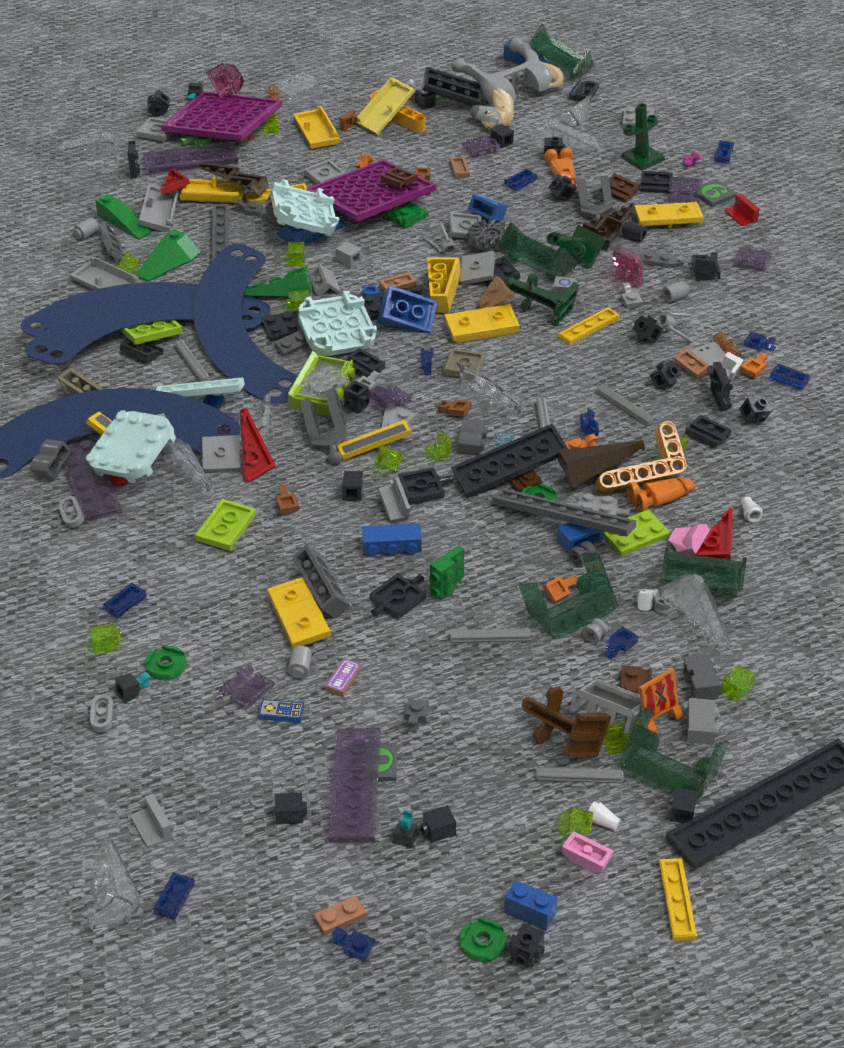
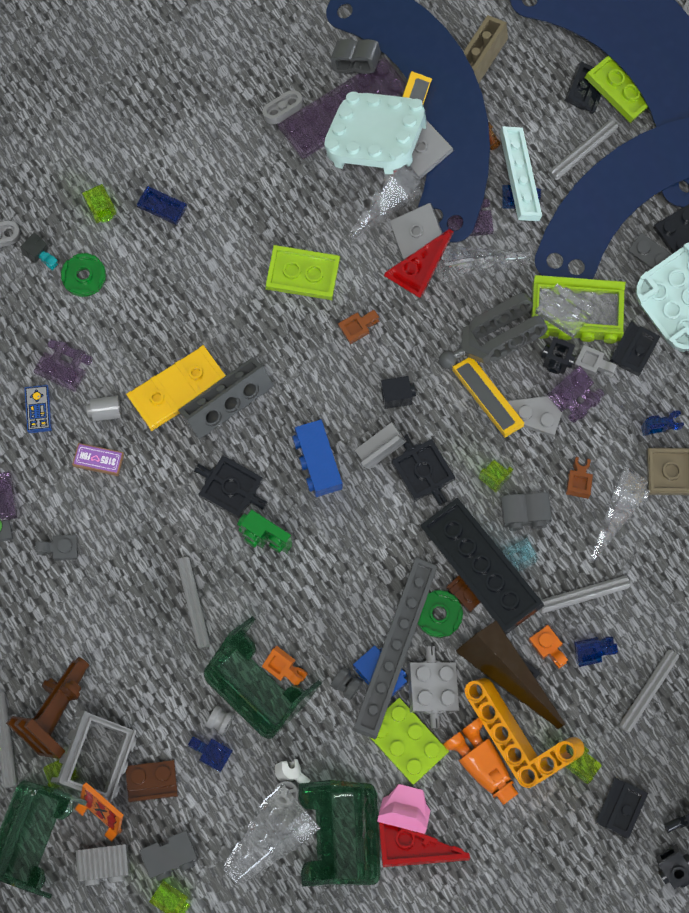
camera: 75 degrees right, 30 degrees up
(389, 458) = (460, 422): clear neon green panel -> none
(751, 510) = (480, 882): white cone -> none

